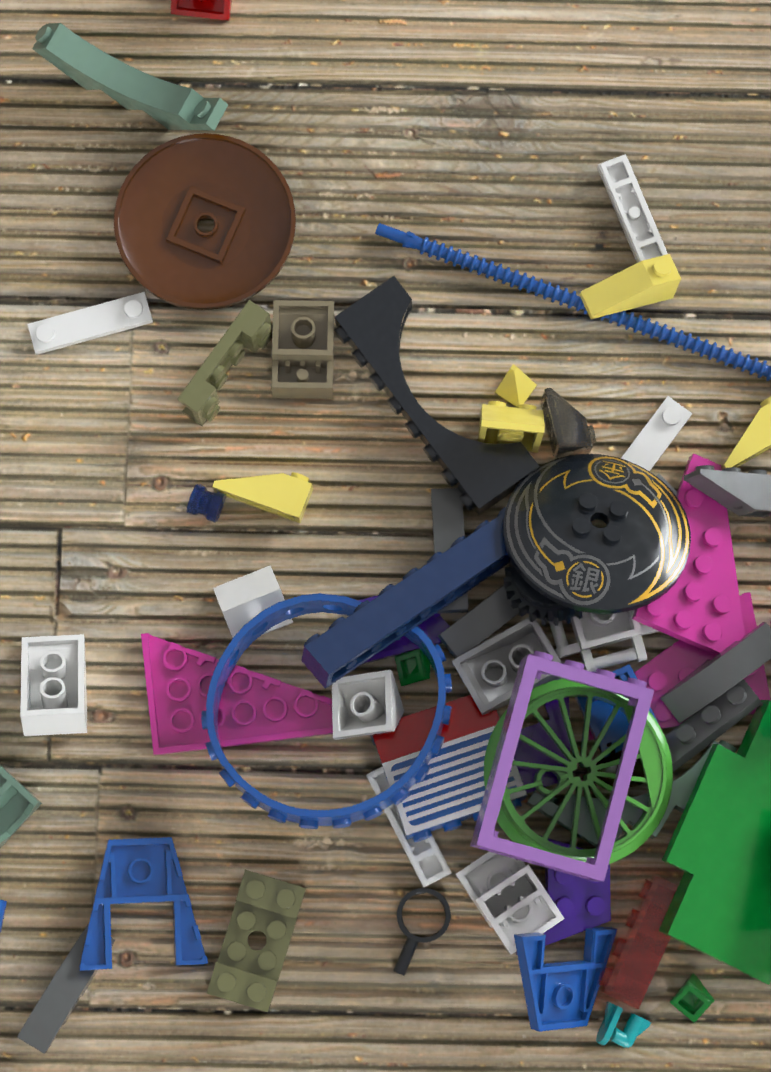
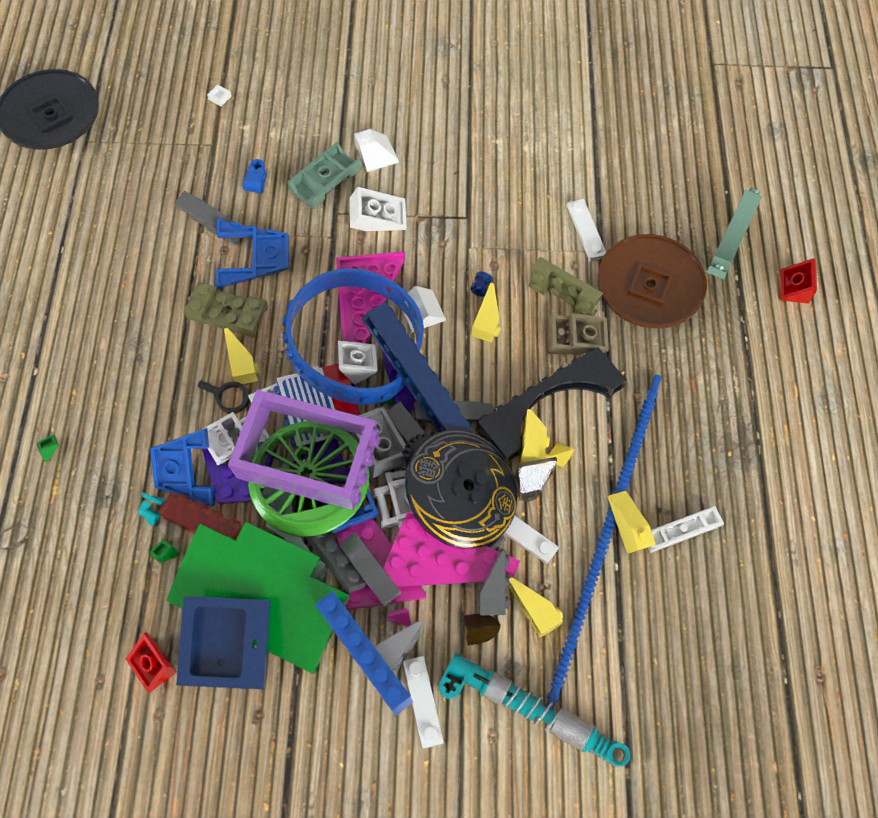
camera: 90 degrees right, 15 degrees down
(361, 904) = (241, 361): none -> light yellow slope

